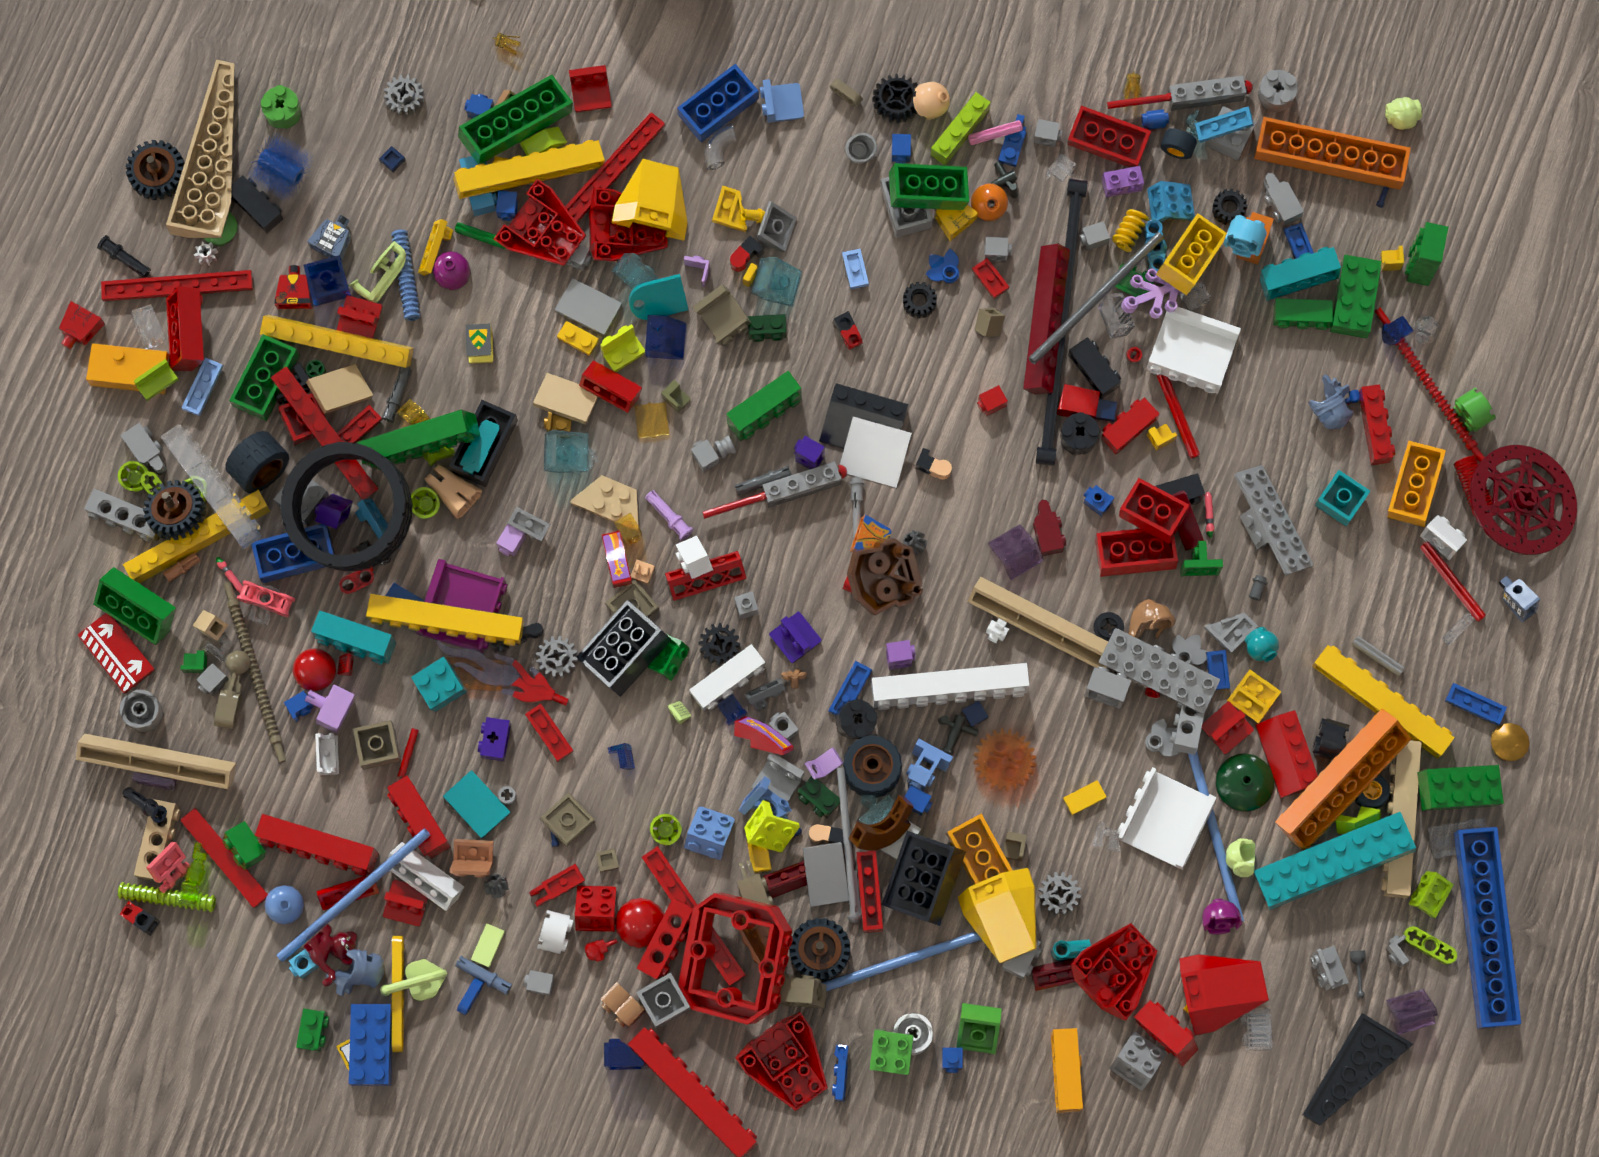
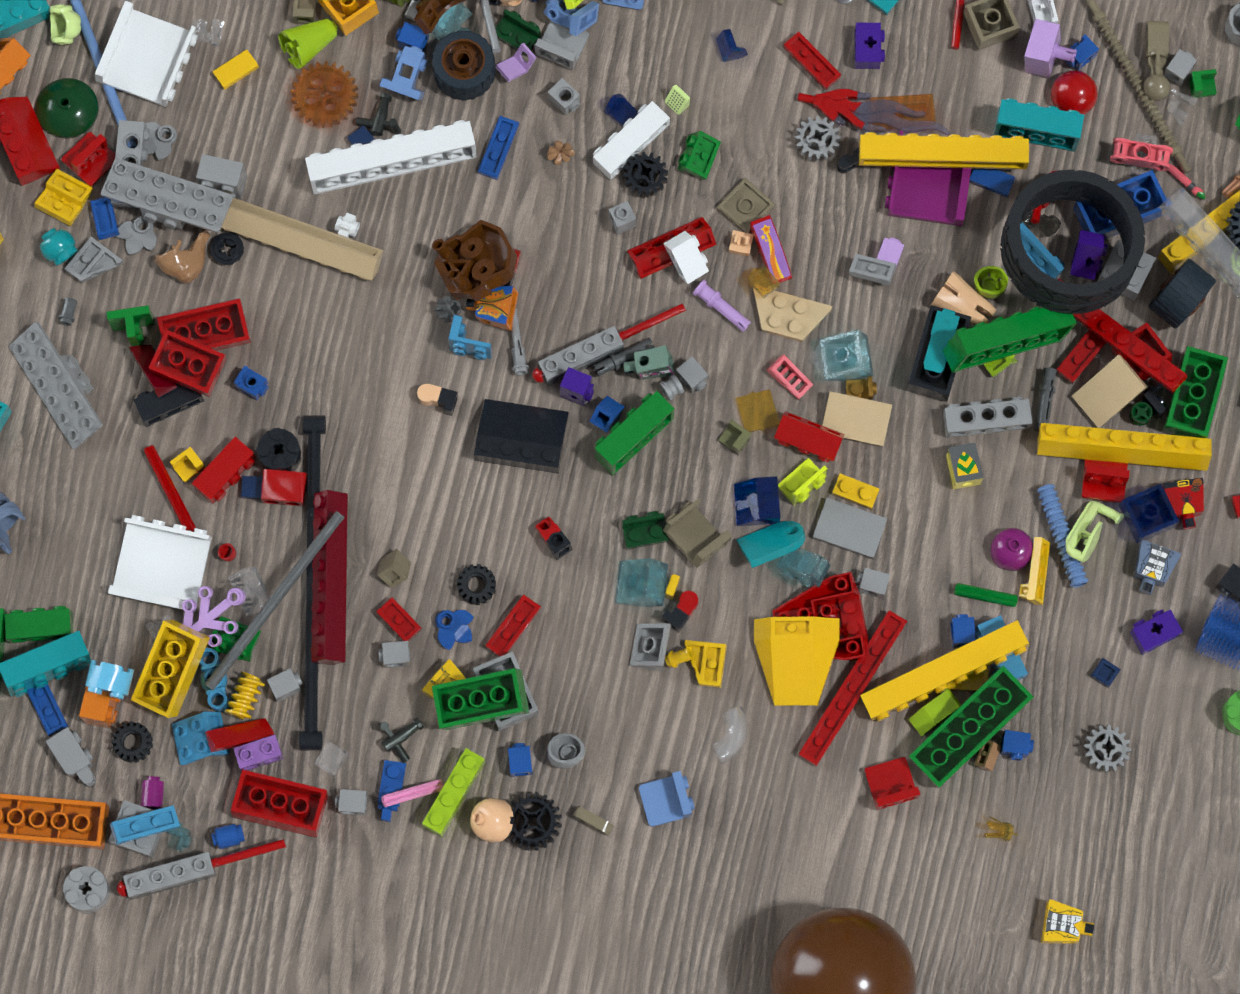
camera: 170 degrees right, 0 degrees up
(210, 625) = (1194, 120): tan brick -> none
(345, 664) = (1041, 98): red slope -> none
(347, 176) = (1148, 641): none -> dark purple brick
(412, 413) = (1022, 378): clear yellow bracket -> none
(422, 378) = (956, 427): none -> light grey brick
(439, 684) = (938, 91): teal brick -> none
(542, 228) = (917, 602): red wedge -> none
(623, 648) = (747, 155): black slope -> none
(624, 456) = (772, 370): none -> coral slope
(698, 262) = (733, 594): lavender bracket -> none
(718, 103) = (740, 784): blue brick -> none
(739, 467) = (658, 361): none -> sand green torso
(757, 696) = (587, 132): dark grey hinge -> none
(762, 736) = (584, 78): red slope -> none
(785, 428) = (607, 414): none -> blue brick
(795, 637) = (564, 193): dark purple bracket -> none
(845, 721) = (487, 111): black brick -> none
(855, 269) = (554, 611): light blue plate -> none
(875, 451) = (505, 403): white sticker -> none
(892, 260) = (513, 626): none -> red plate
(900, 654) = (449, 183): medium lavender brick -> none
(907, 504) = (462, 346): none -> dark azure bracket
(980, 200) = (410, 707): orange piece -> none
(992, 401) = (381, 478): red brick -> none
(1014, 811) = (307, 40): none -> lime cone
(1016, 551) = (337, 317): clear purple bracket -> none
(1047, 530) = (304, 342): dark red hinge -> none
(1095, 367) = (269, 531): black brick -> none
(1132, 84) = (258, 877): clear yellow piece -> none
(1137, 195) = (238, 734): none -> red slope
(1178, 143) = (197, 805): black wheel -> none
(1209, 514) = (125, 371): coral piece -> none
(1216, 161) = (152, 793): none -> magenta brick

